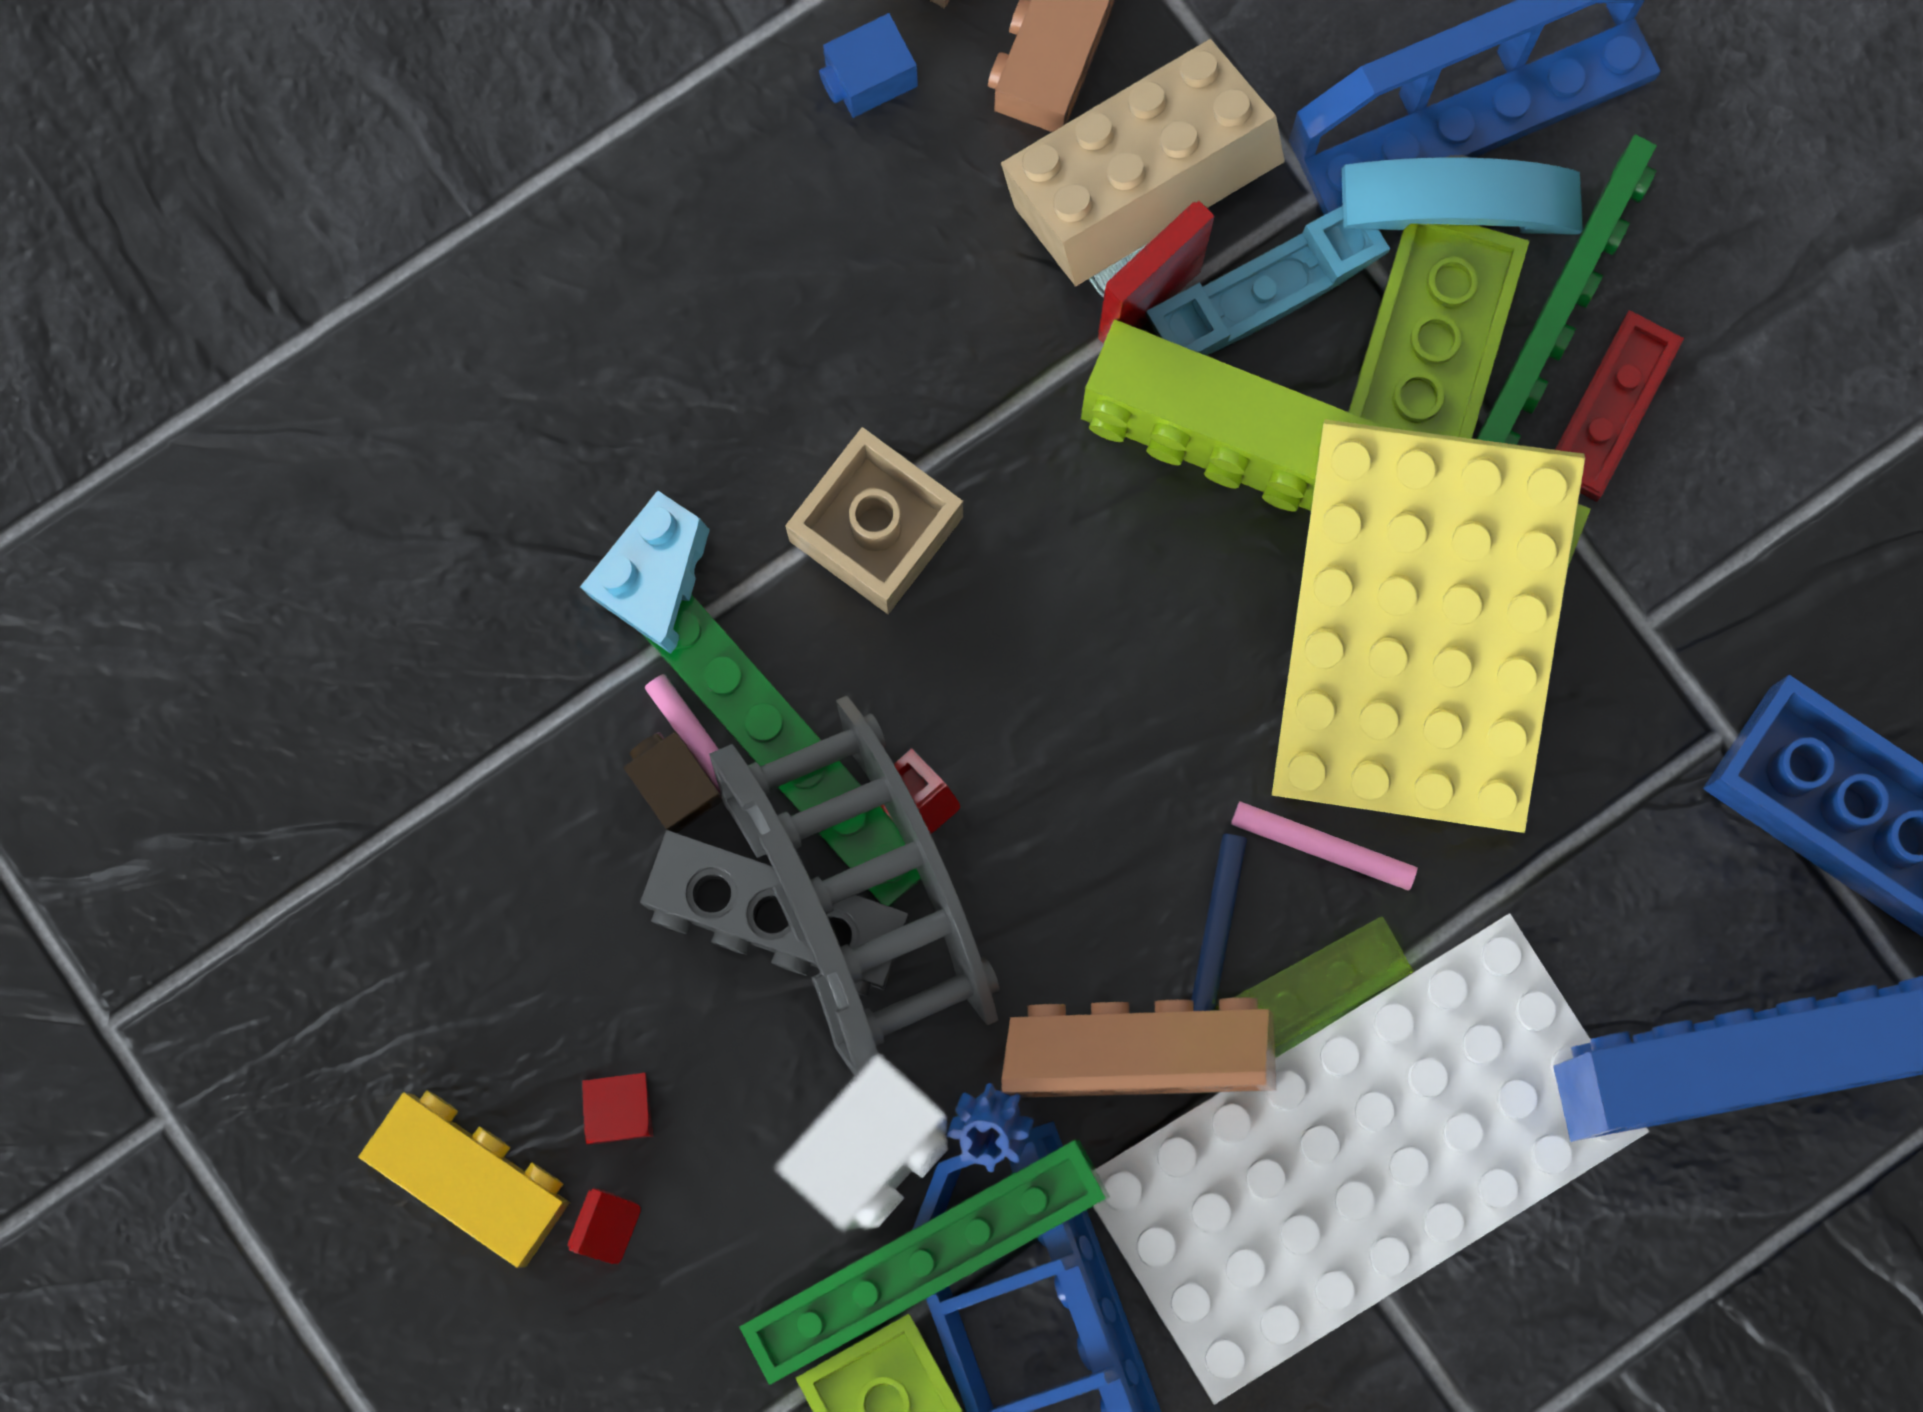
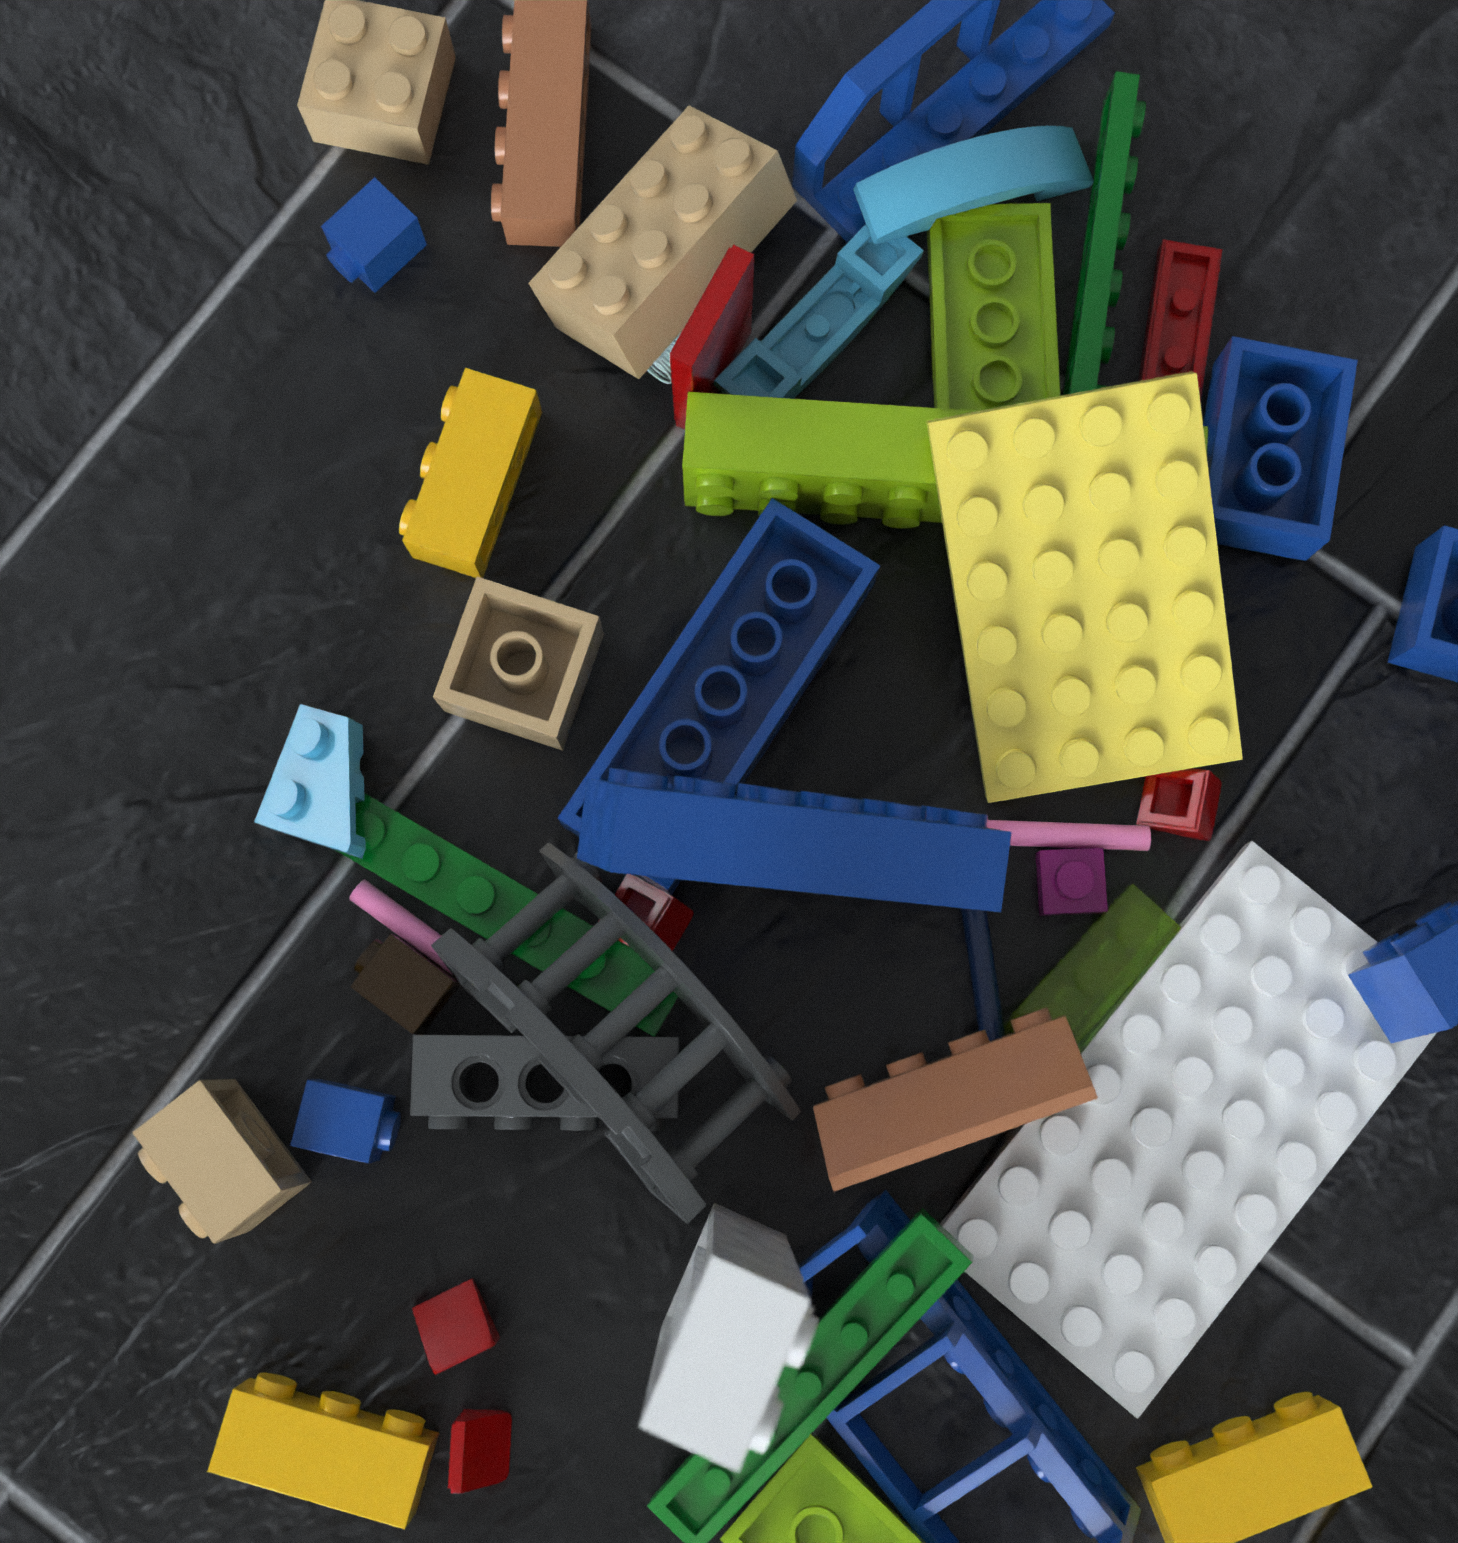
camera: 20 degrees left, 0 degrees up
(457, 884) = (219, 1159): none -> tan brick
(578, 889) = (346, 1121): none -> blue brick
(887, 324) = (470, 473): none -> yellow brick
(990, 1127) = (833, 1230): blue gear -> none
(1052, 612) = (740, 660): none -> blue brick
(1056, 762) = (792, 841): none -> blue brick
(1325, 895) = (1071, 881): none -> magenta plate
(1457, 856) = (1181, 803): none -> red slope
(1657, 547) = (1276, 445): none -> blue brick

